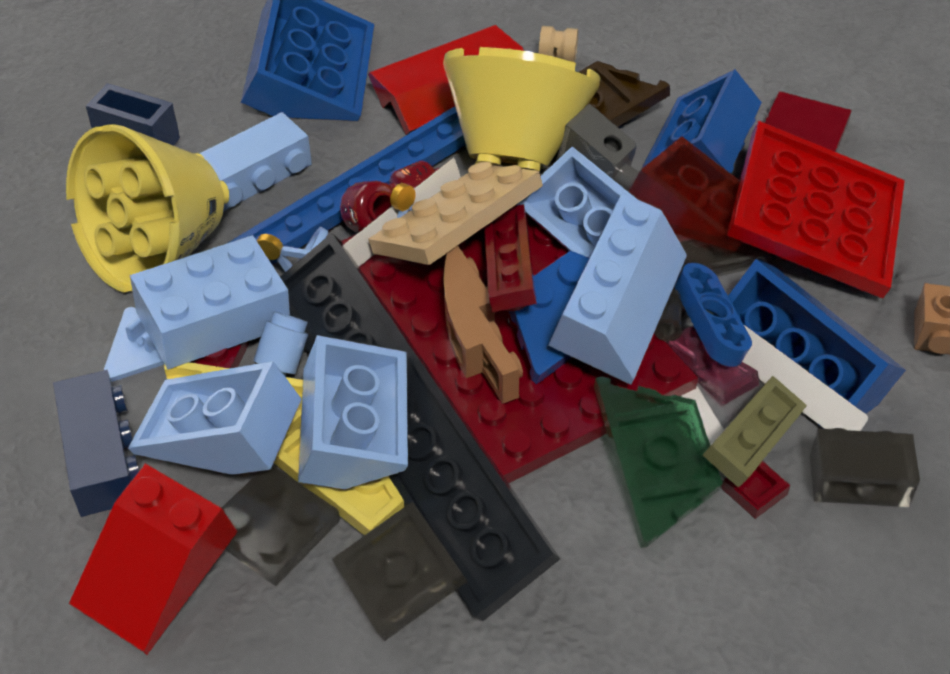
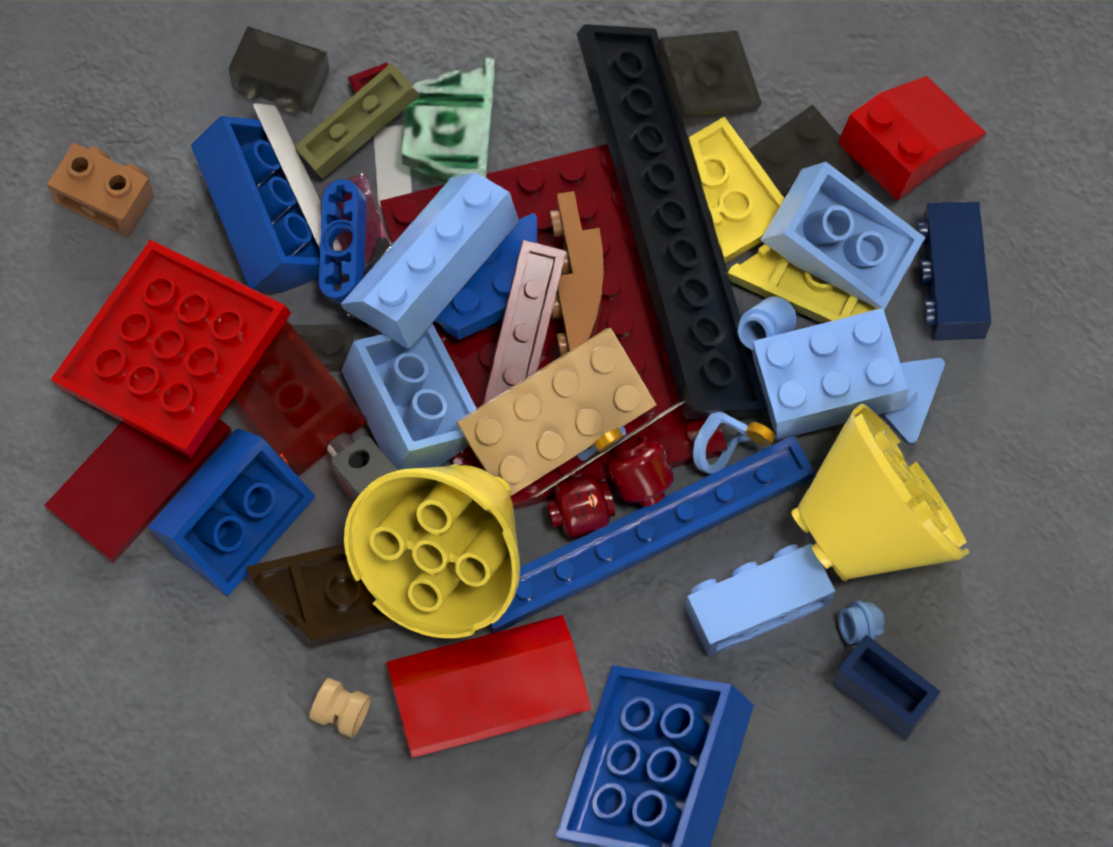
camera: 165 degrees left, 20 degrees up
(352, 414) = (718, 198): light blue slope -> none

